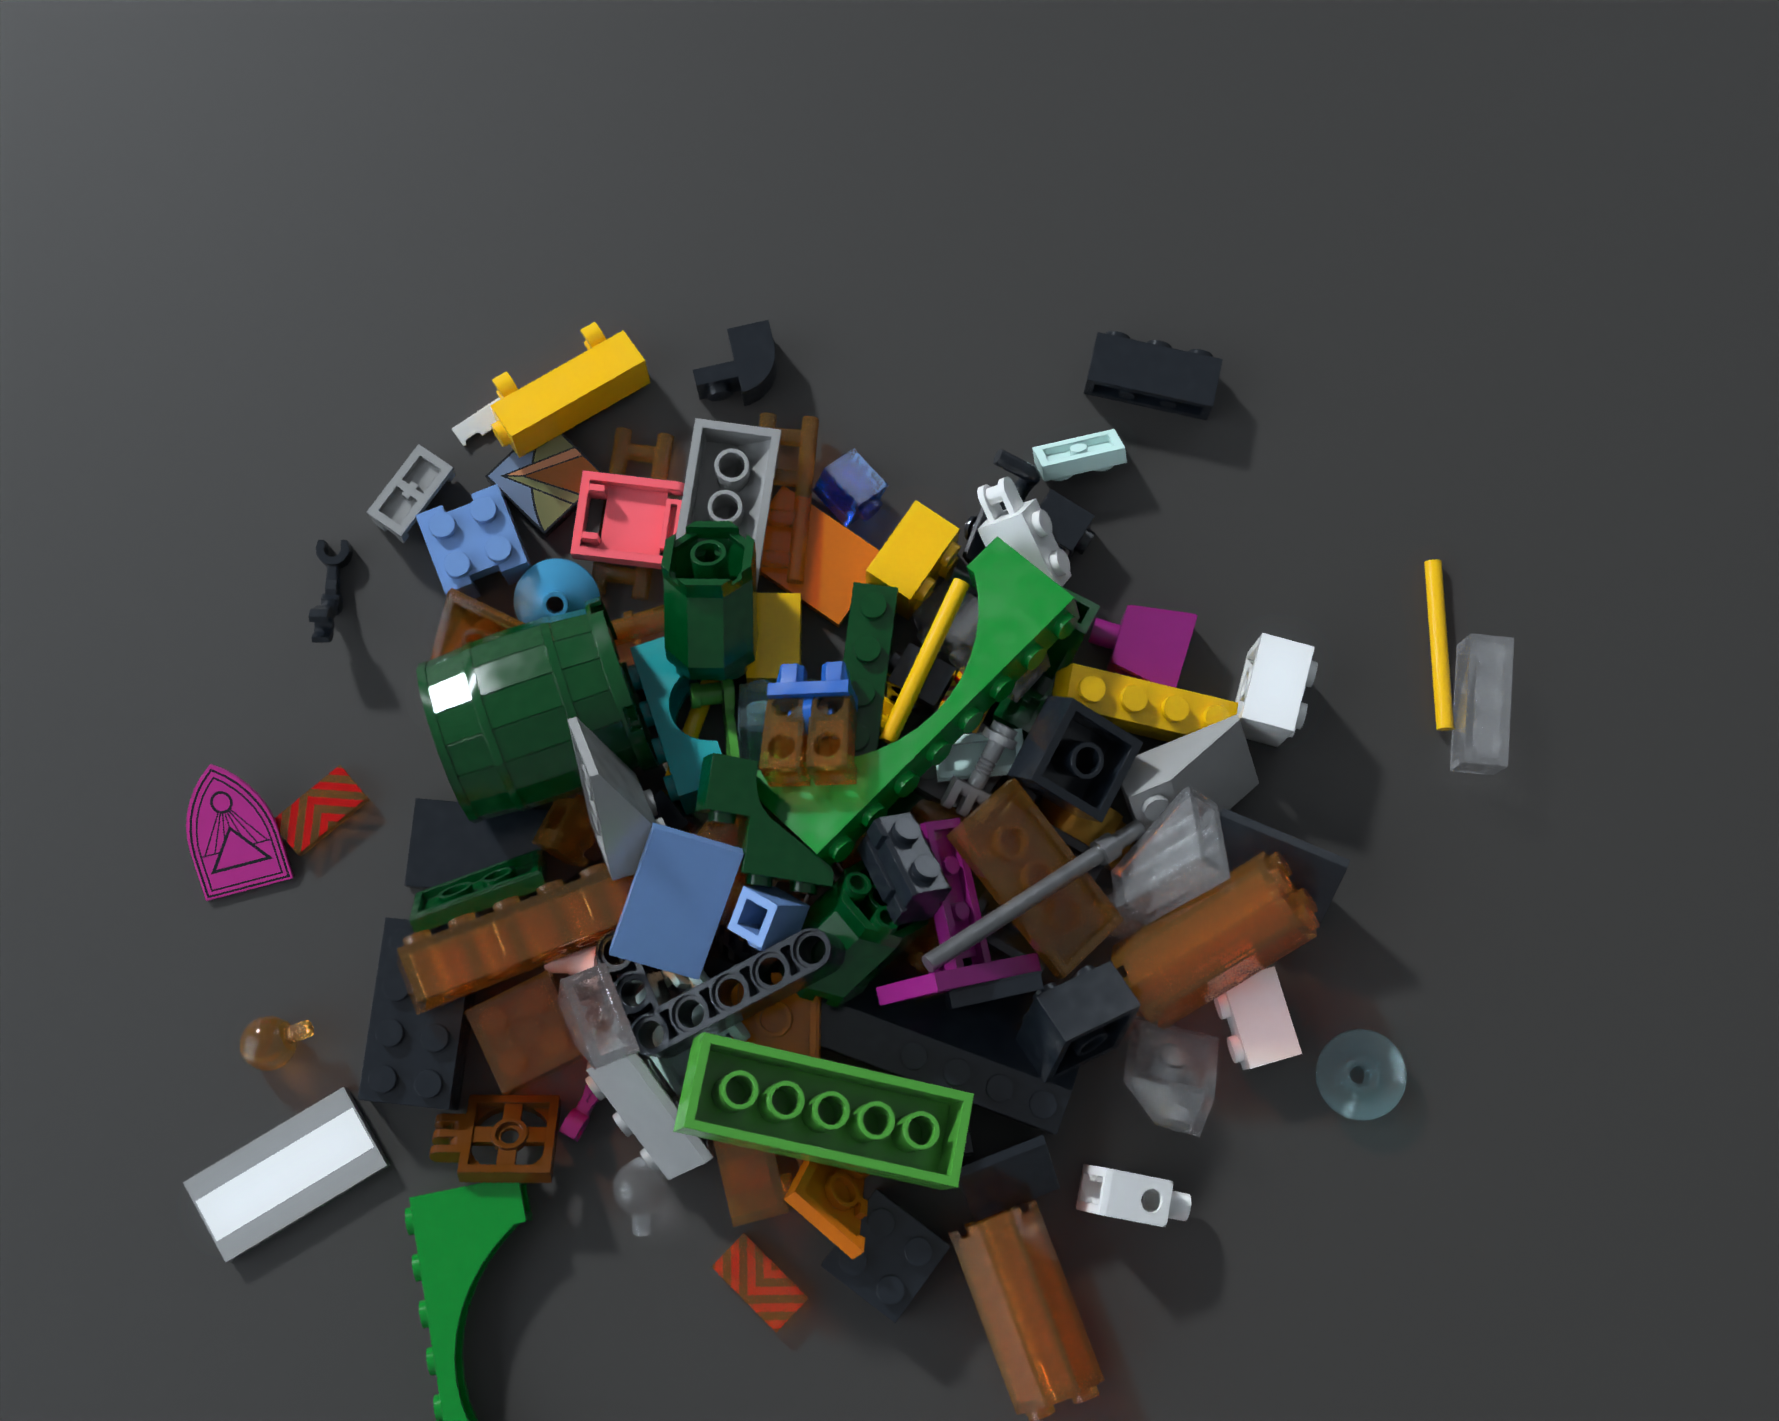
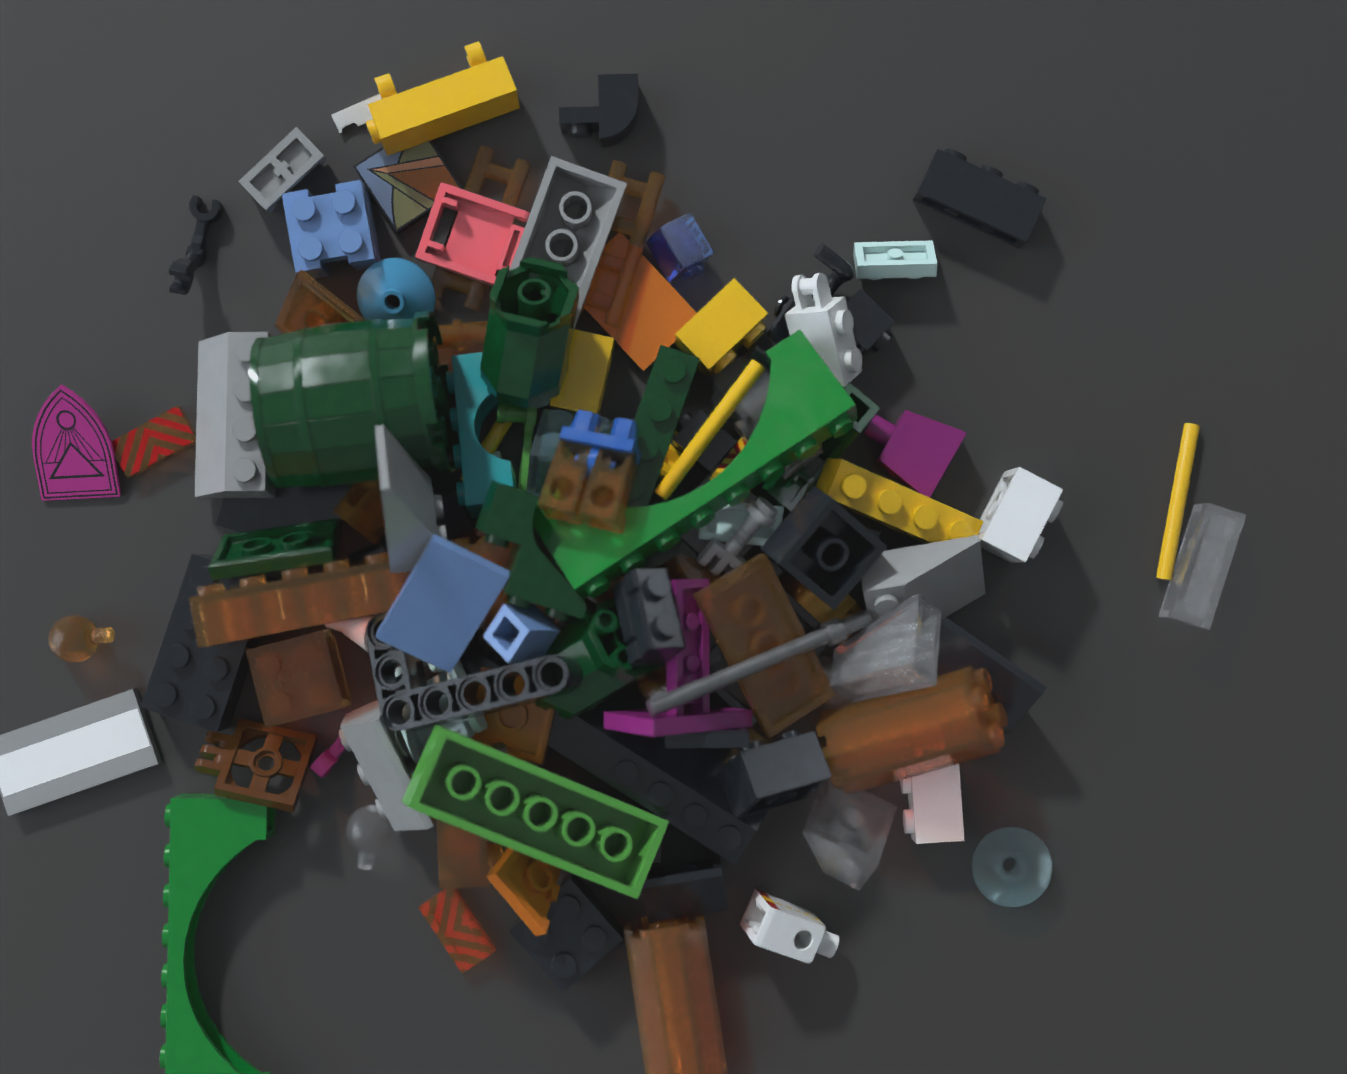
camera: 15 degrees right, 10 degrees up
(402, 772) = (226, 441): none -> light grey slope
(596, 1017) = (355, 692): clear slope -> none

